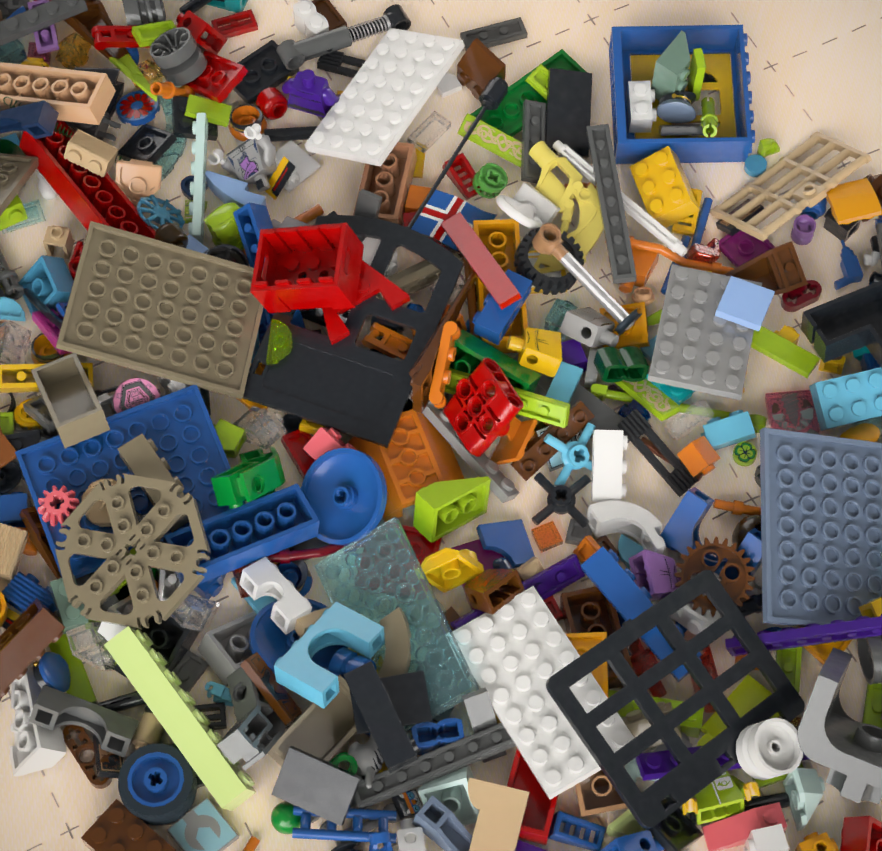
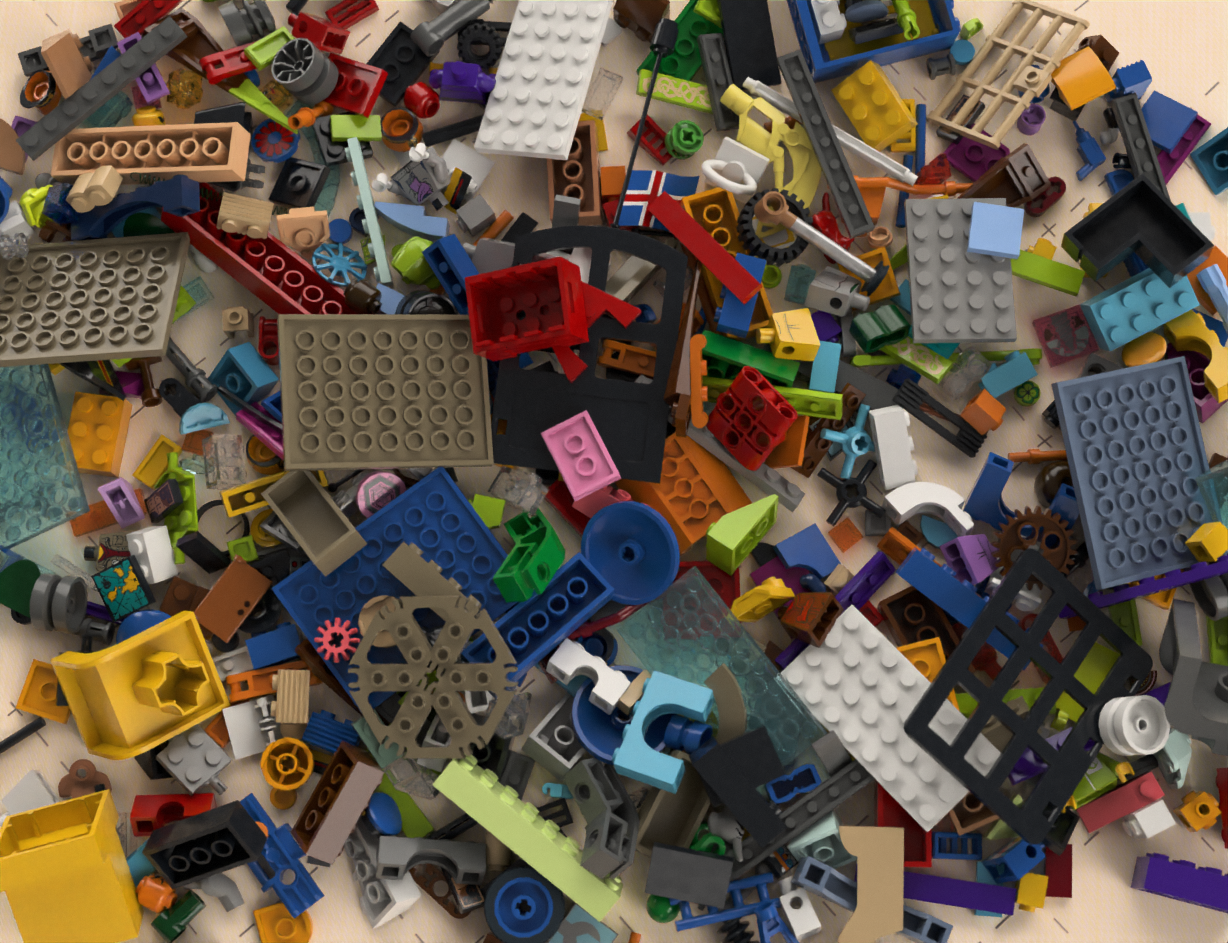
camera: 10 degrees left, 15 degrees up
(170, 190) = (340, 231): none -> blue tile
(271, 690) = (617, 785): reddish brown tile -> none
(279, 342) = (515, 394): clear neon green plate -> none
(290, 202) = (475, 216): none -> light grey brick
(322, 404) = (580, 455): none -> bright pink tile
(345, 64) = (485, 33): none -> black tyre
(466, 534) = (763, 553): none -> black tile
(536, 306) = (771, 276): none -> lime plate
(599, 272) = (826, 223): none -> red animal
(733, 171) = (941, 66): none -> dark grey bush

